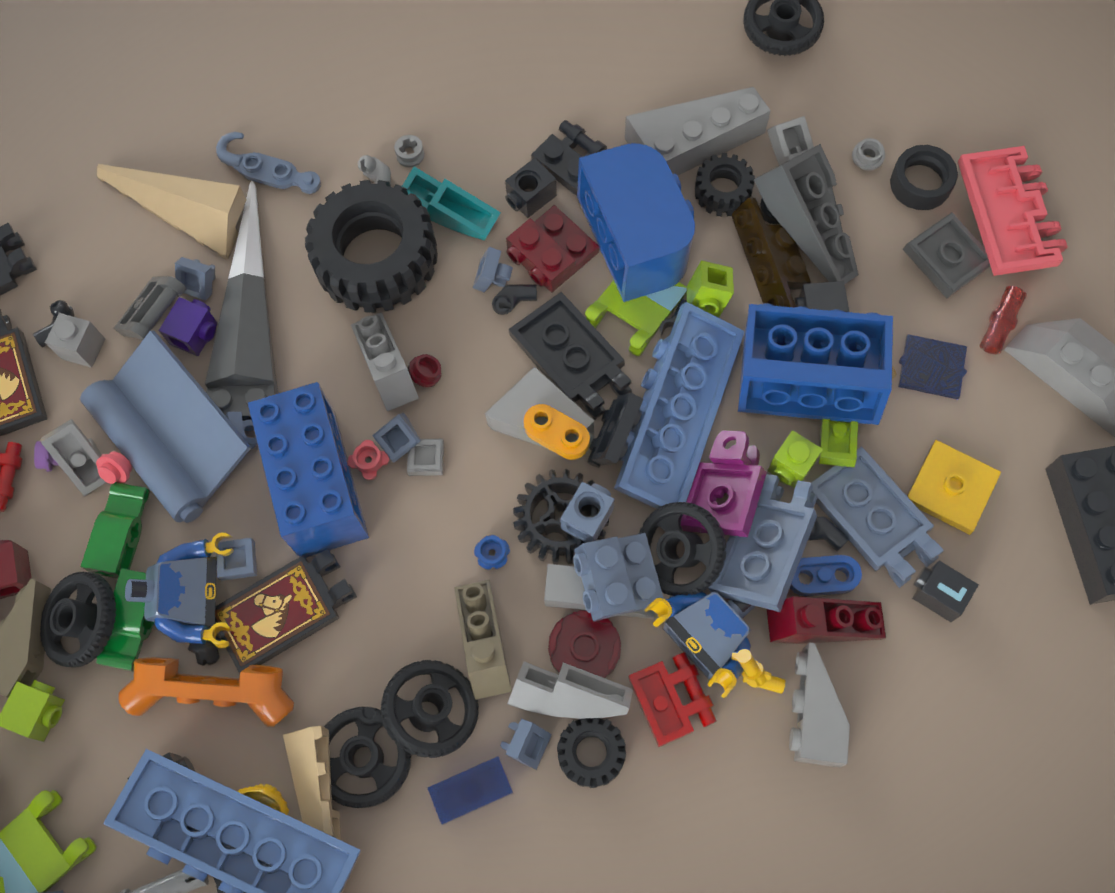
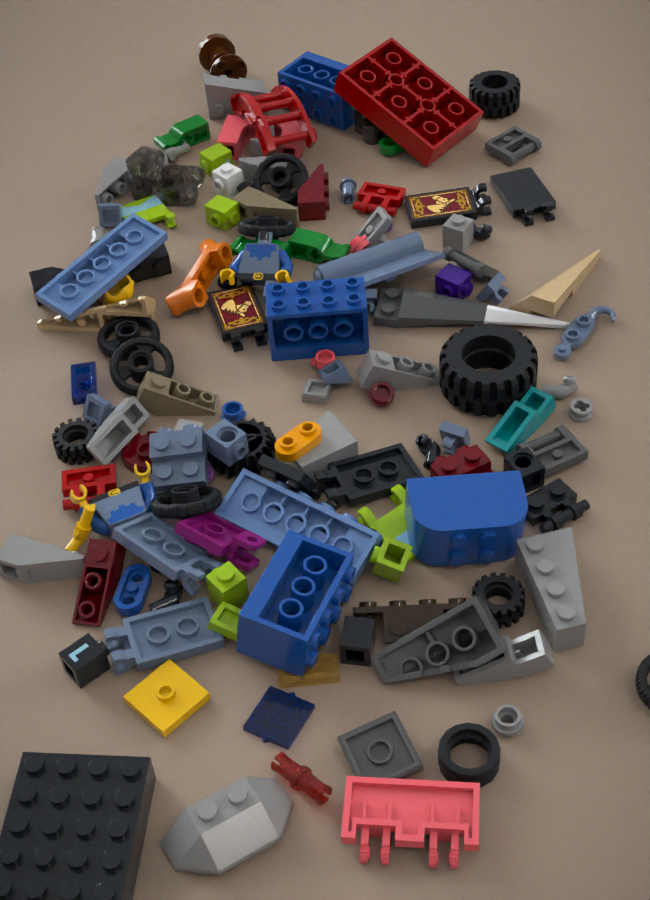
camera: 105 degrees right, 25 degrees down
(493, 158) = (559, 454): none -> dark grey plate

